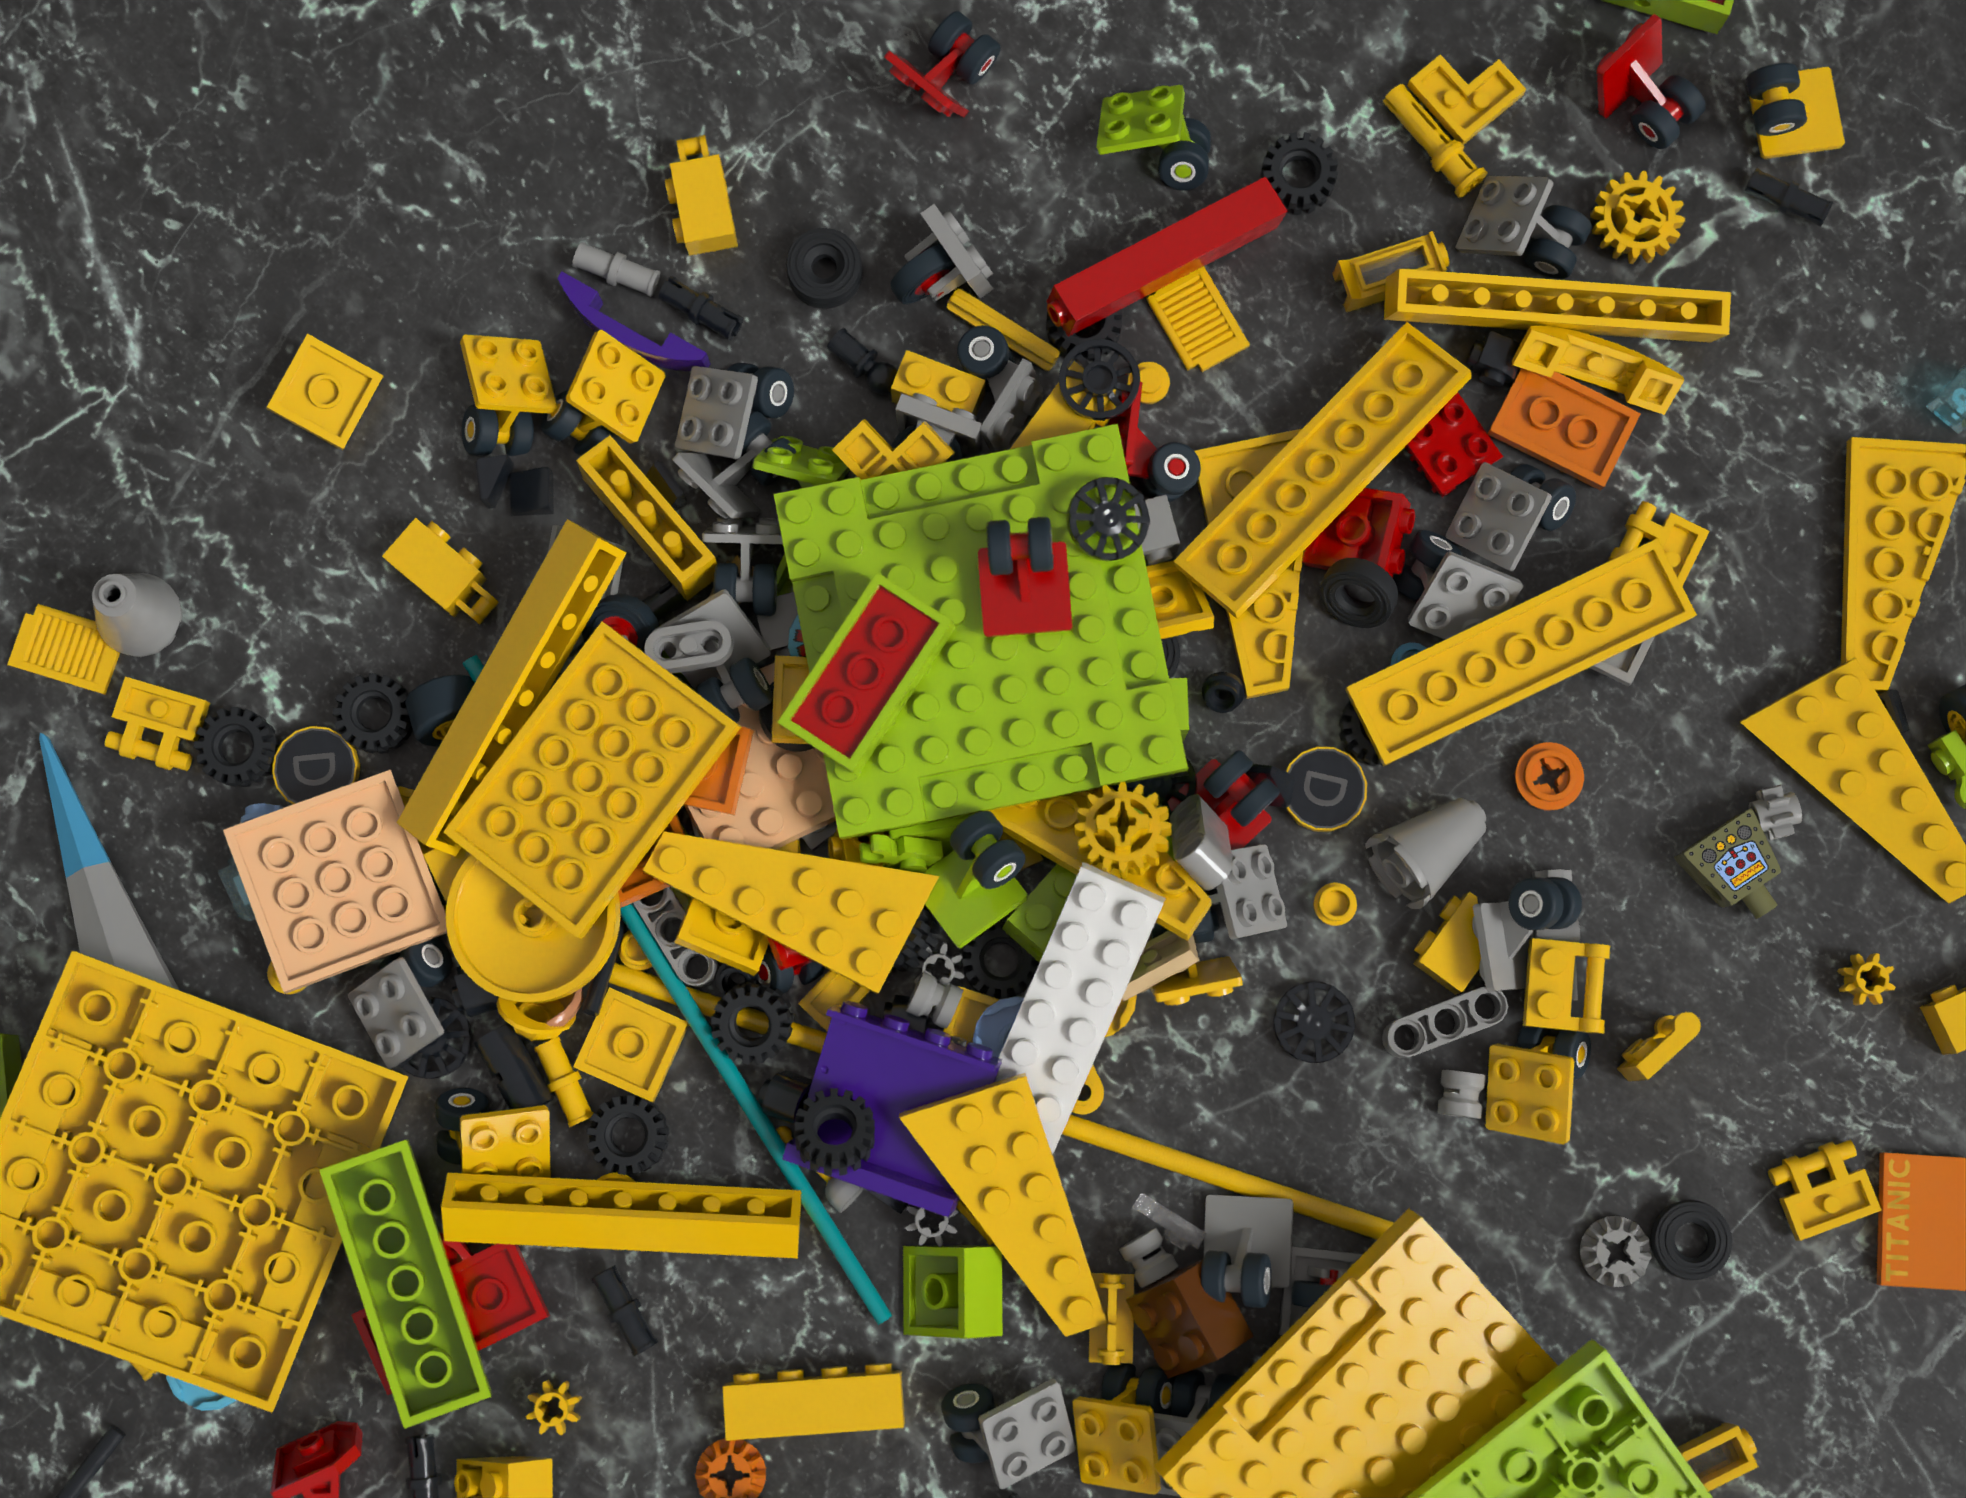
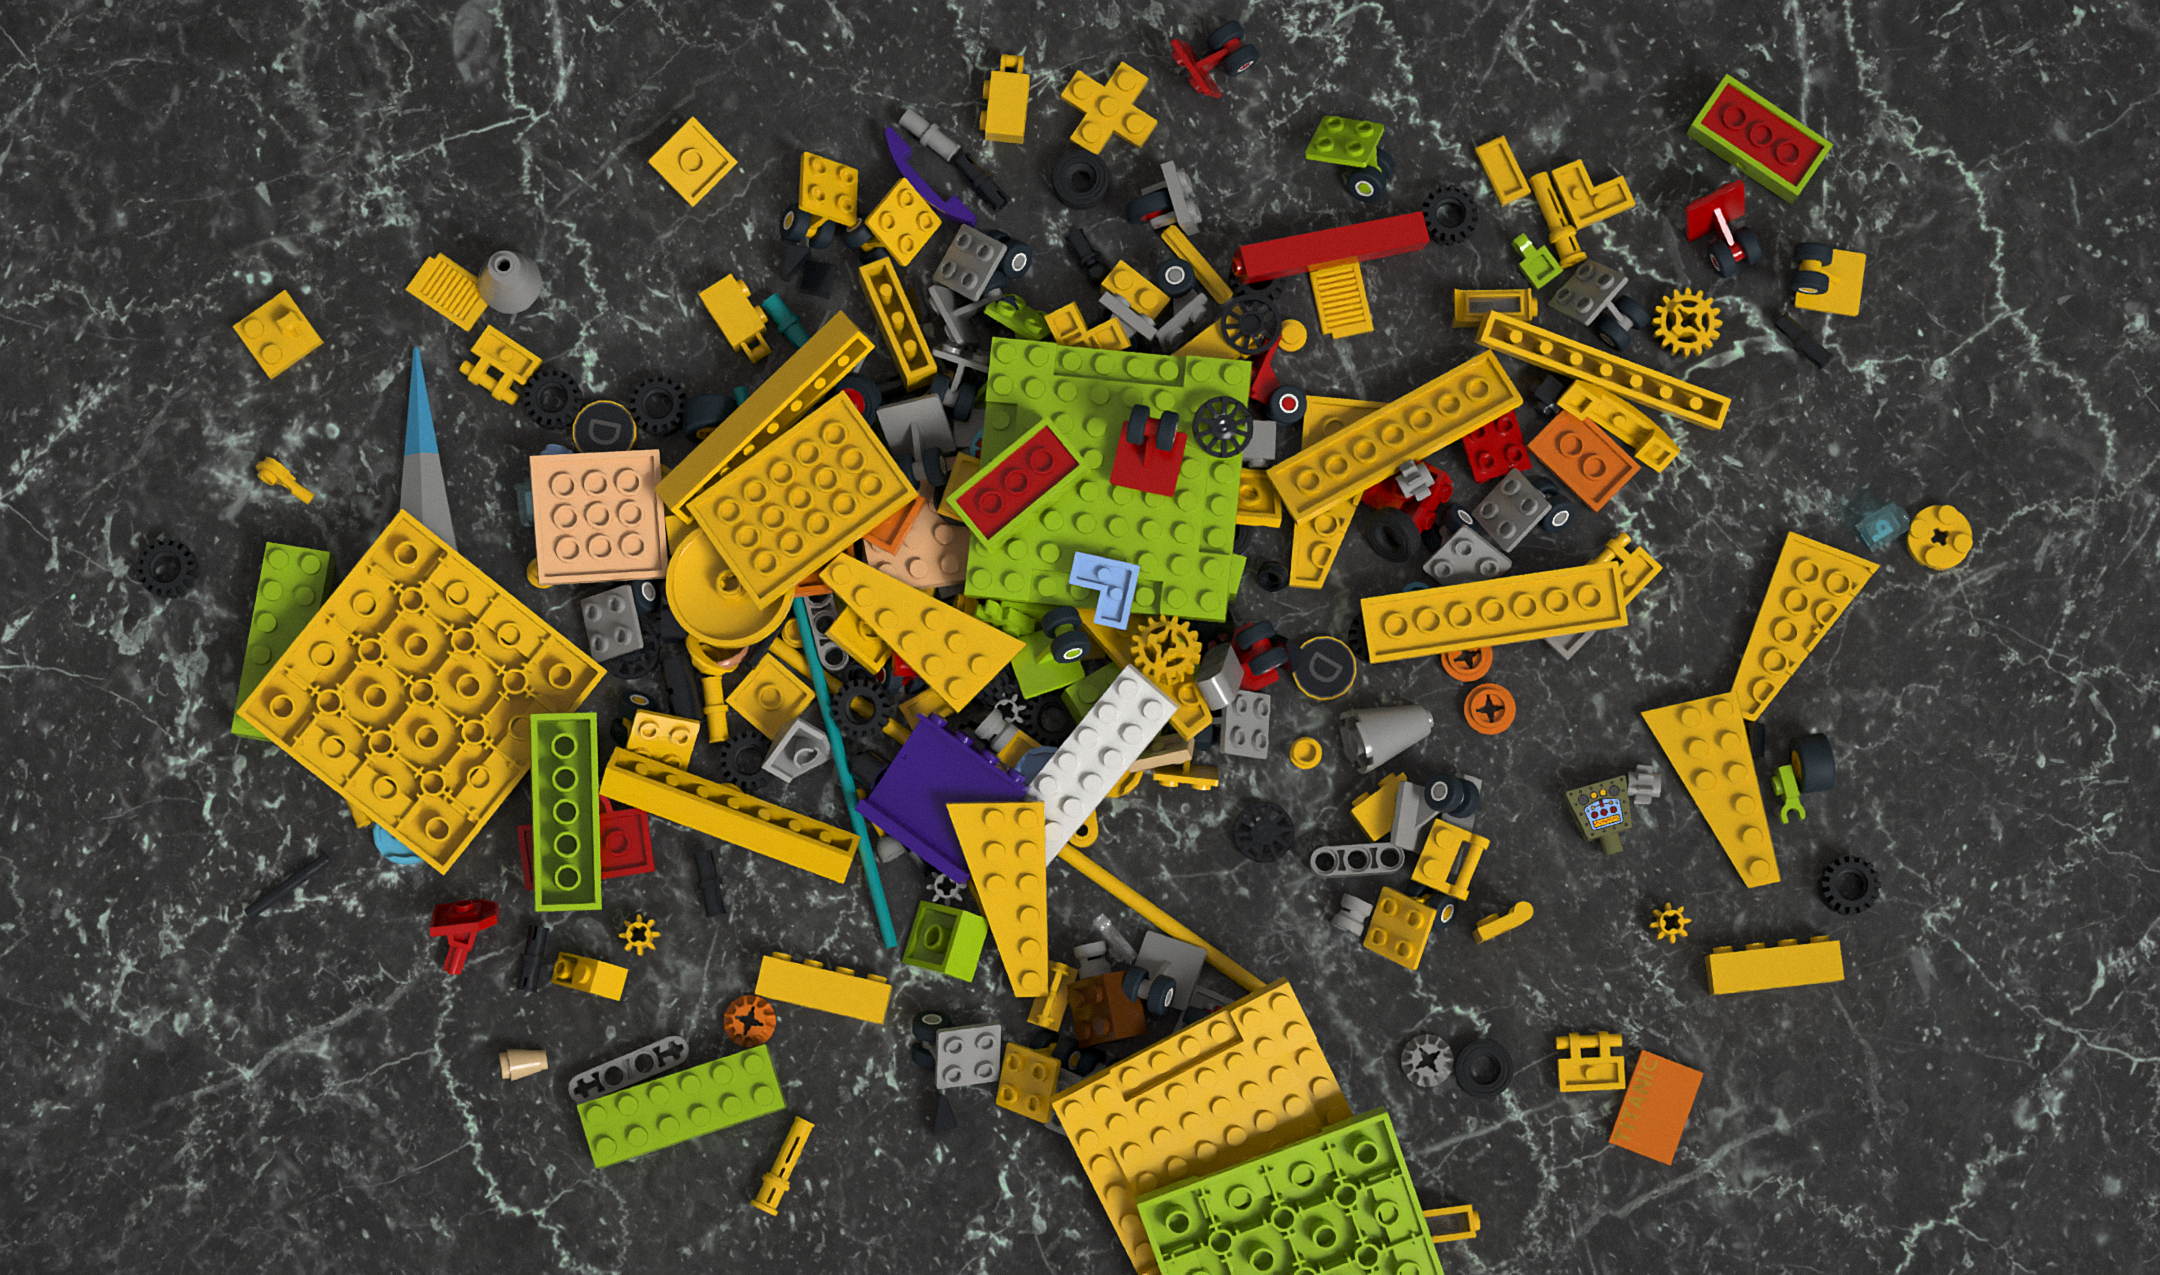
camera: 15 degrees right, 0 degrees up
(507, 558) = (786, 321): none -> teal pin
(683, 1104) = (796, 750): none -> light grey slope
(690, 645) = (900, 425): light grey plate -> none
(829, 1108) = (897, 784): black tyre -> none
(832, 170) = (1109, 109): none -> yellow plate
(1029, 760) = (1116, 585): none -> light blue plate
(1346, 100) = (1502, 171): none -> yellow tile
(1368, 514) = (1415, 480): none -> light grey gear
(1429, 202) = (1538, 265): none -> lime plate
(1496, 739) = (1461, 671): none -> orange gear

